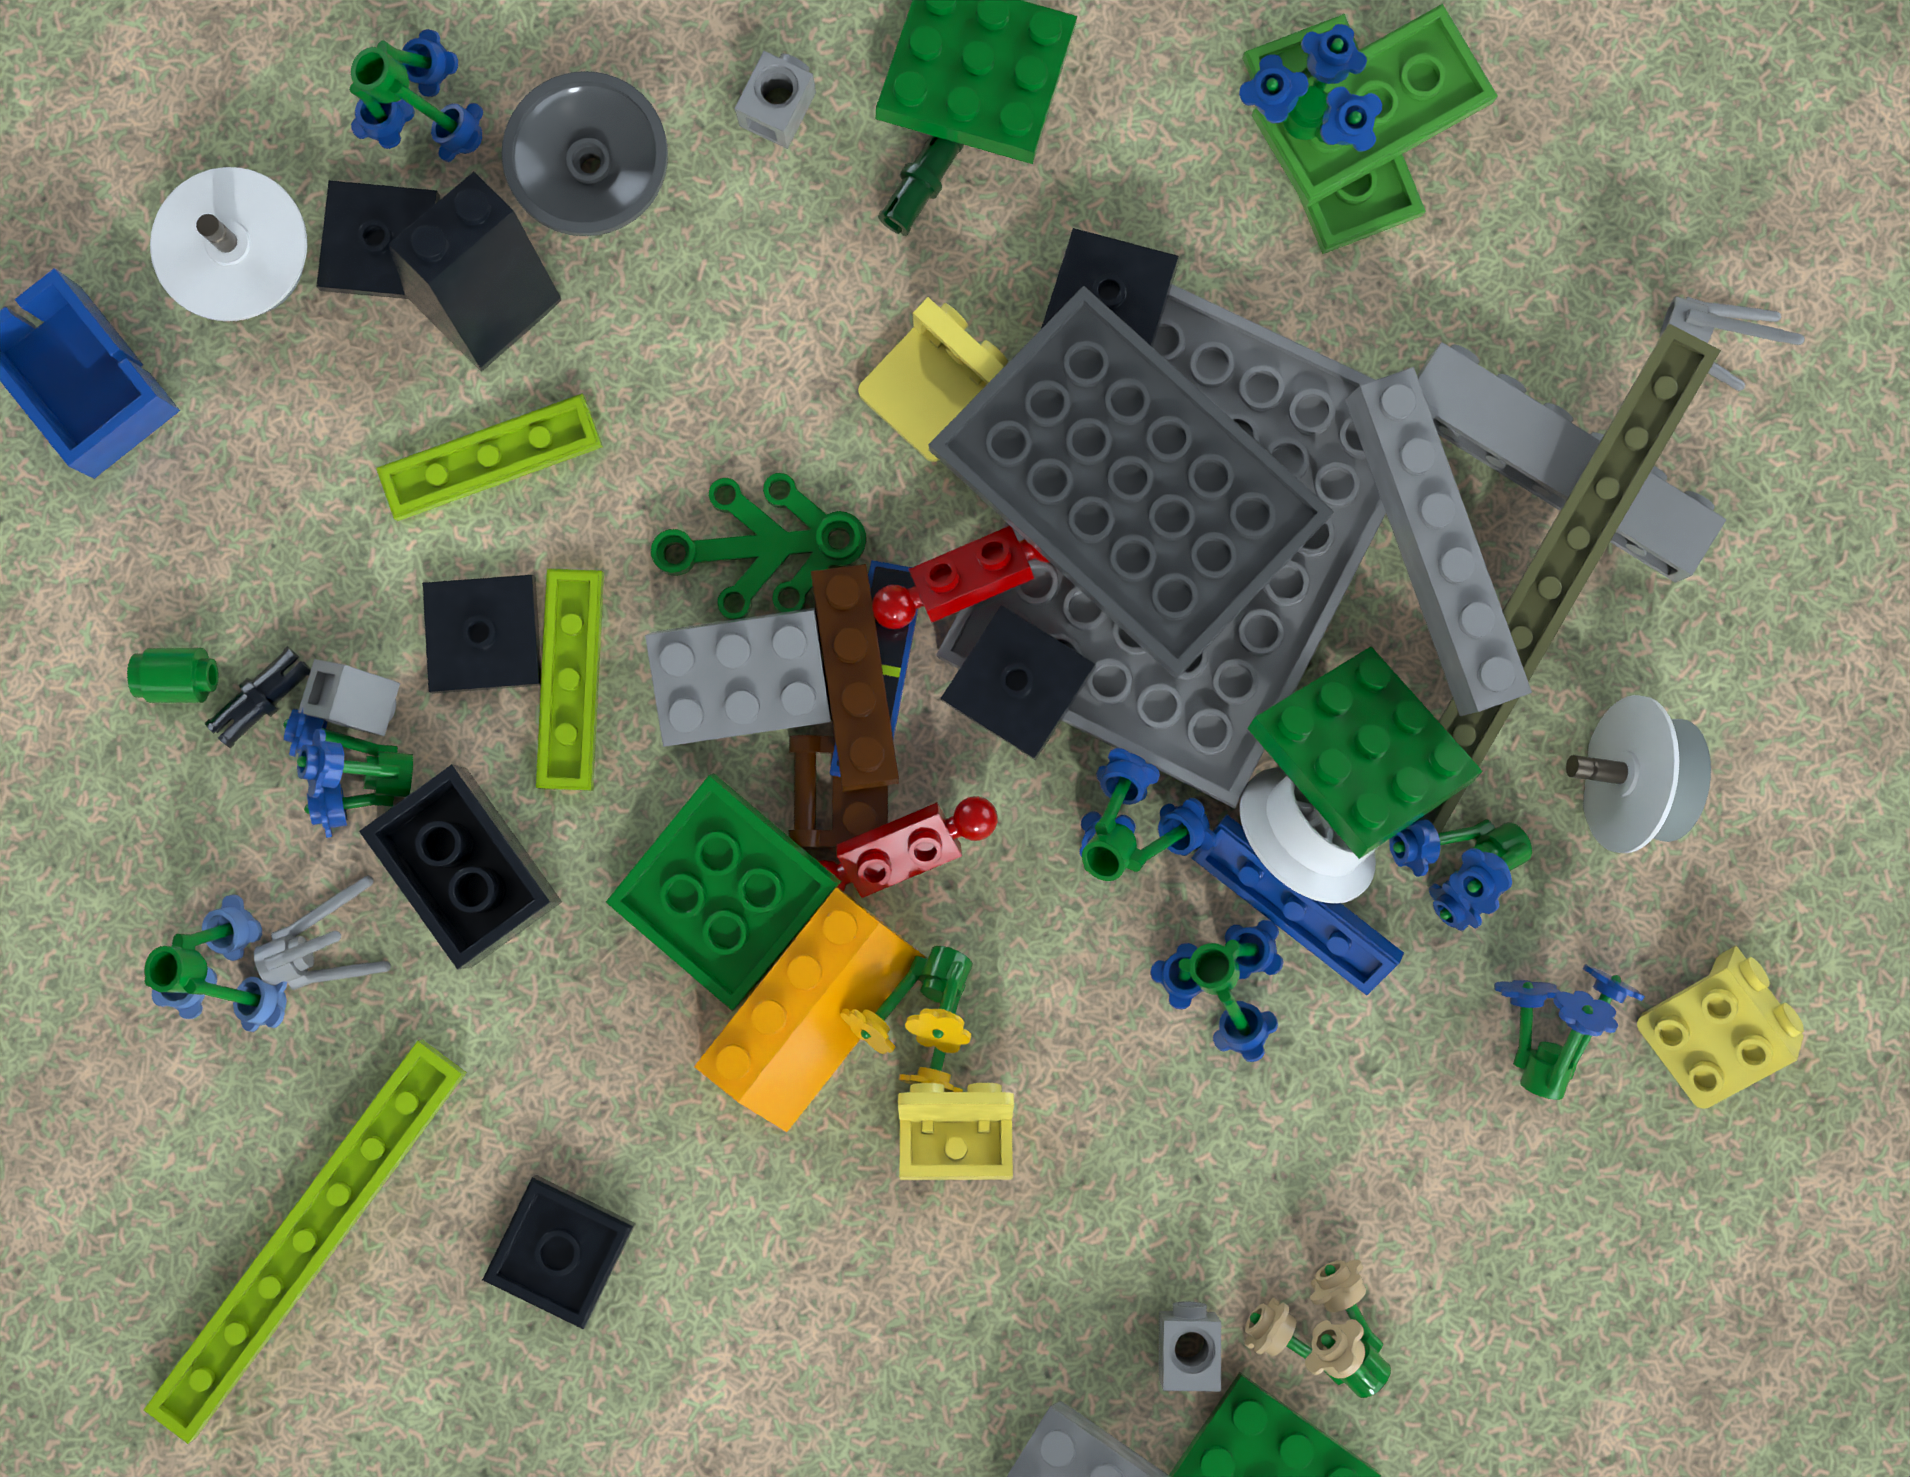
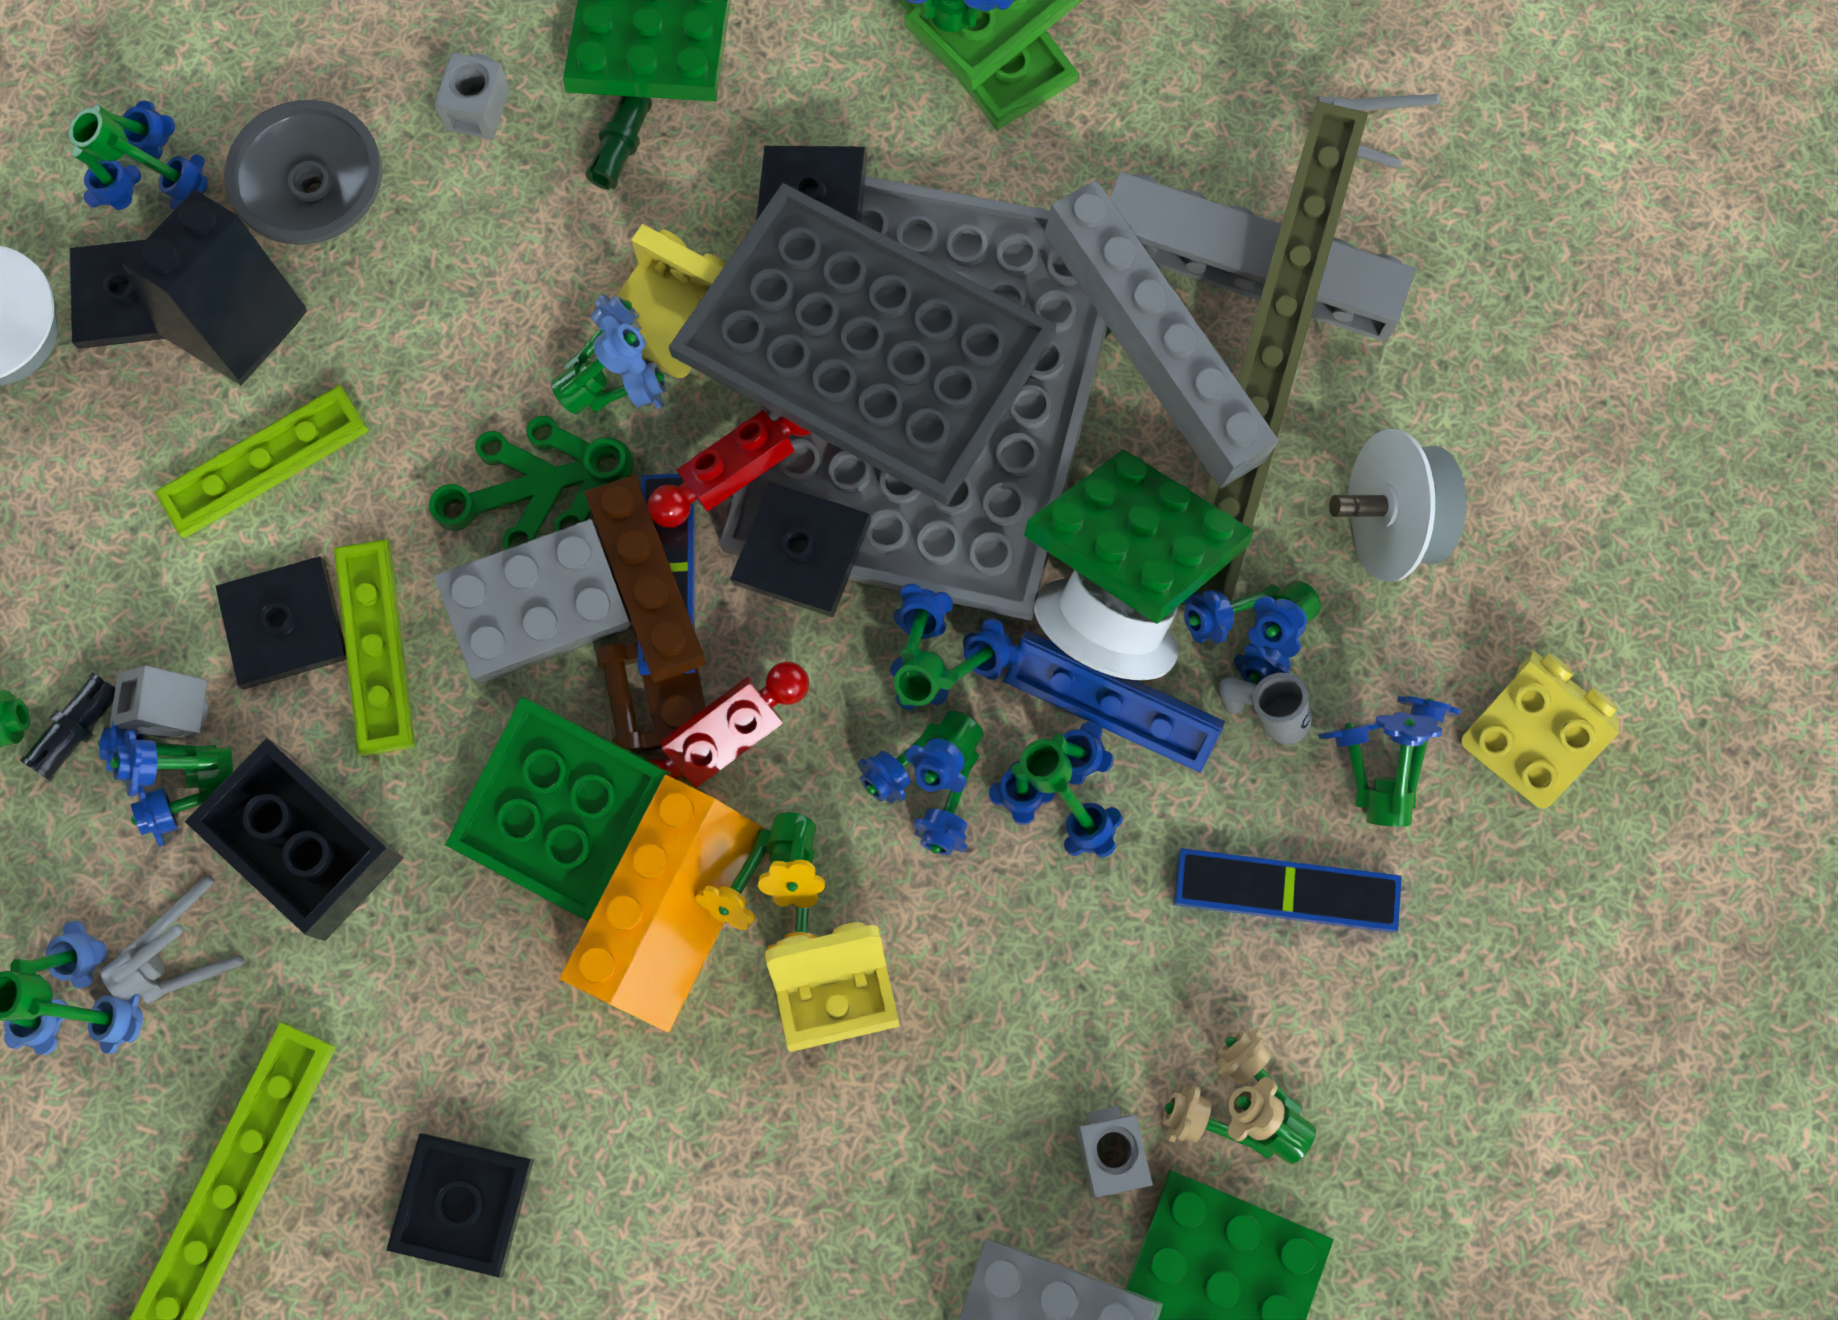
camera: 15 degrees left, 10 degrees down
(875, 437) = (620, 351): none -> plant
(1105, 941) = (941, 761): none -> blue plant
(1423, 1132) = (1288, 890): none -> black tile
(1462, 947) = (1278, 701): none -> light grey piece

